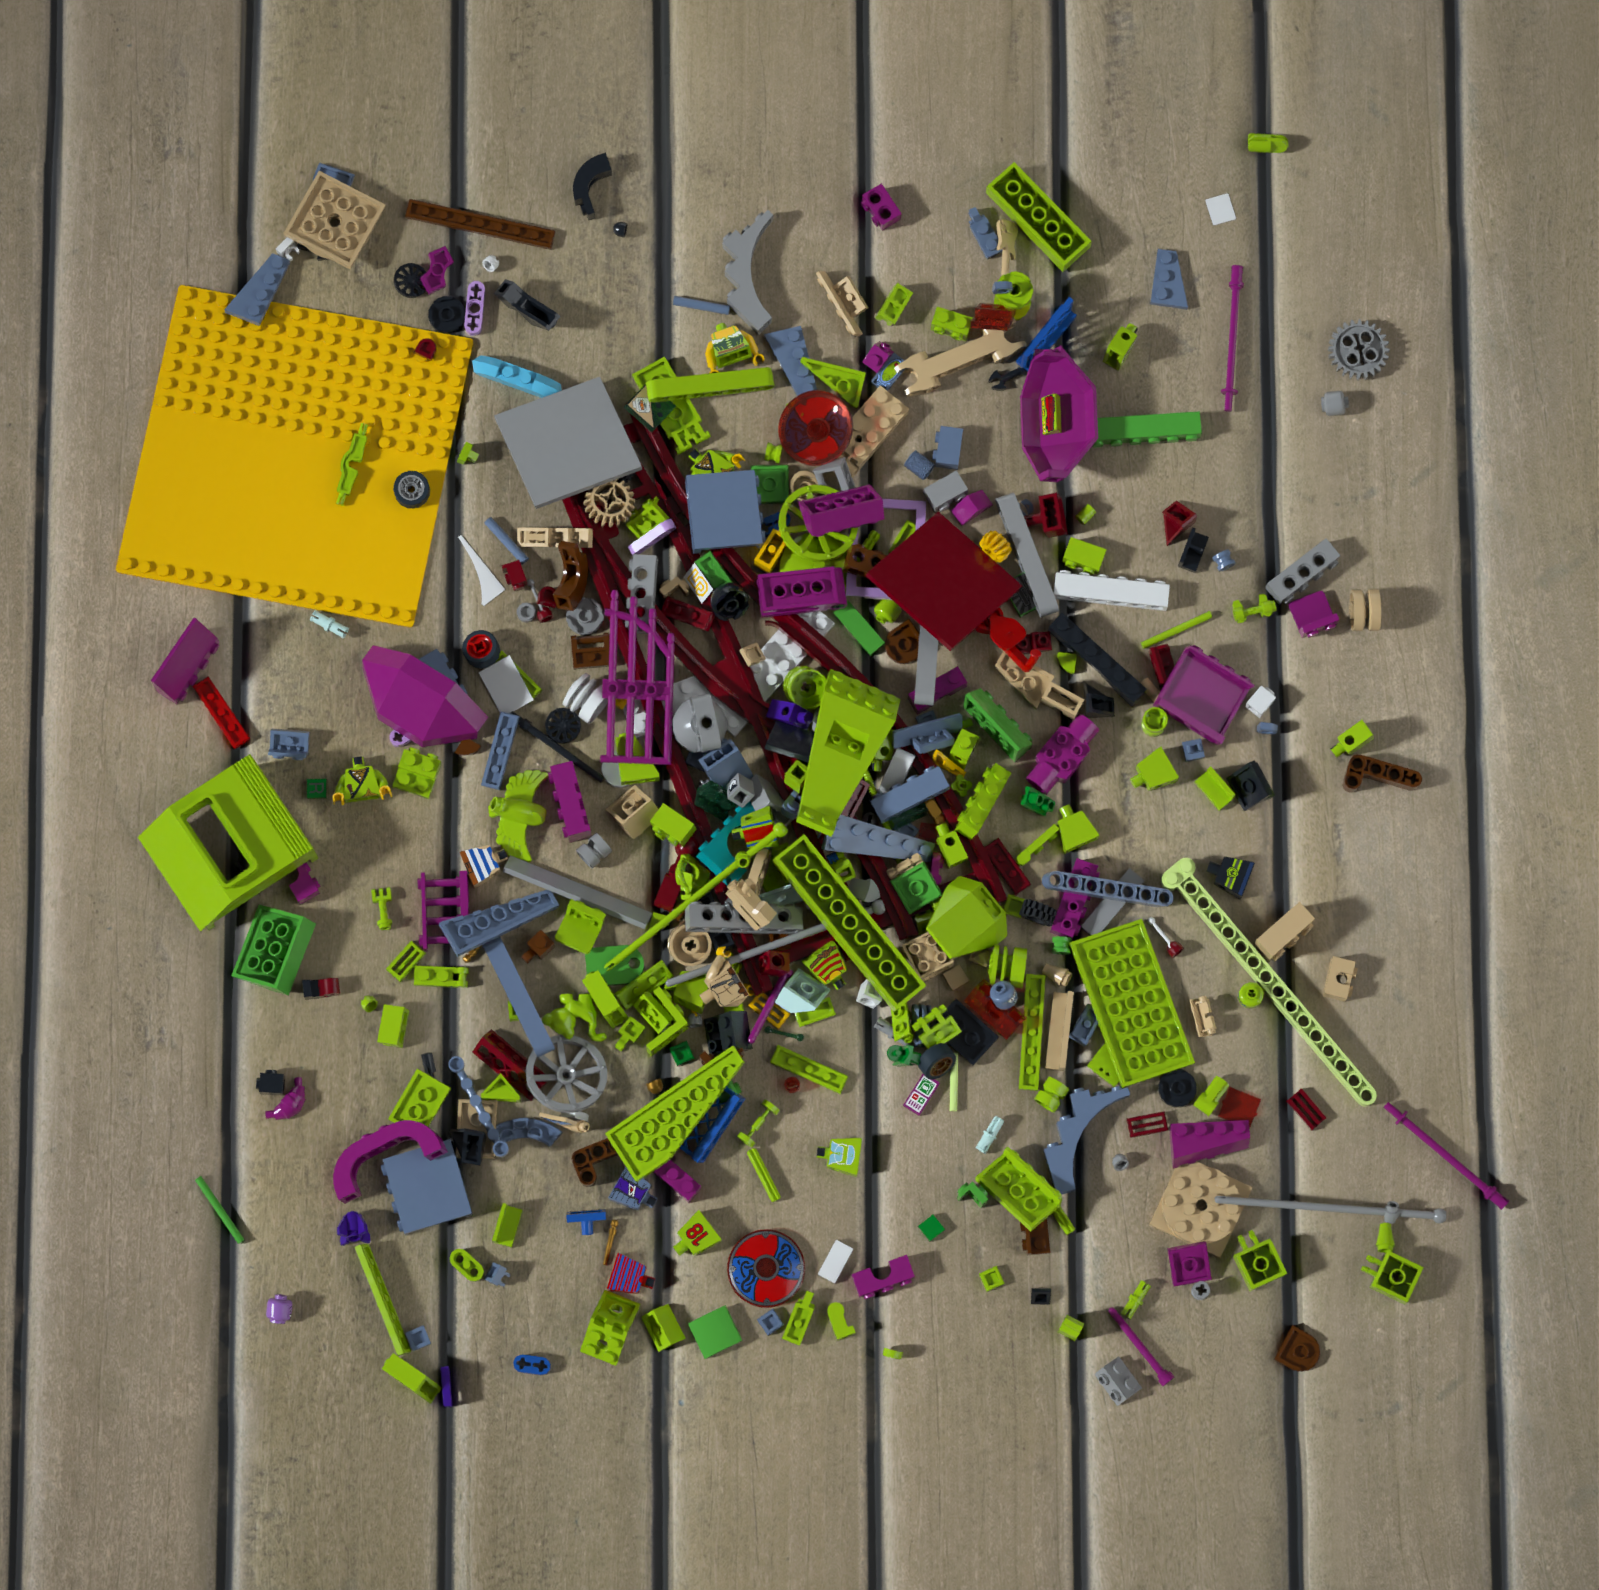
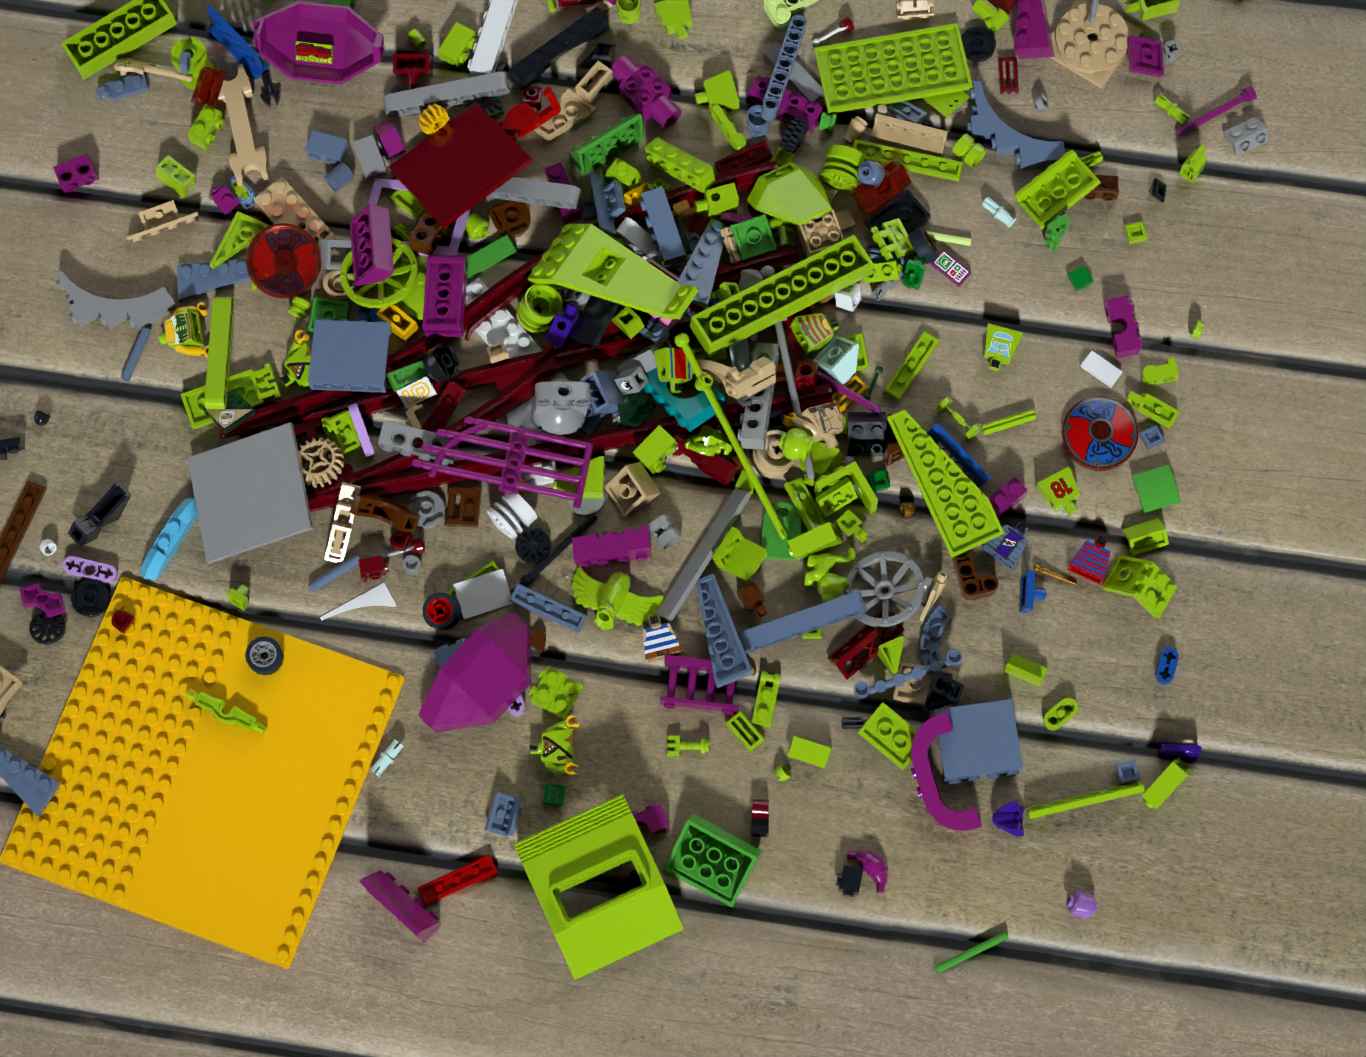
camera: 75 degrees left, 5 degrees down
(495, 1274) = (1073, 686): sand blue tile -> none
(694, 961) = (796, 444): none -> lime piece
(790, 1082) = (921, 382): clear red hinge -> none
(1037, 801) = (687, 121): green hips -> none
(1045, 867) = (755, 123): none -> sand blue wheel
(1067, 661) = (555, 76): lime tile -> none

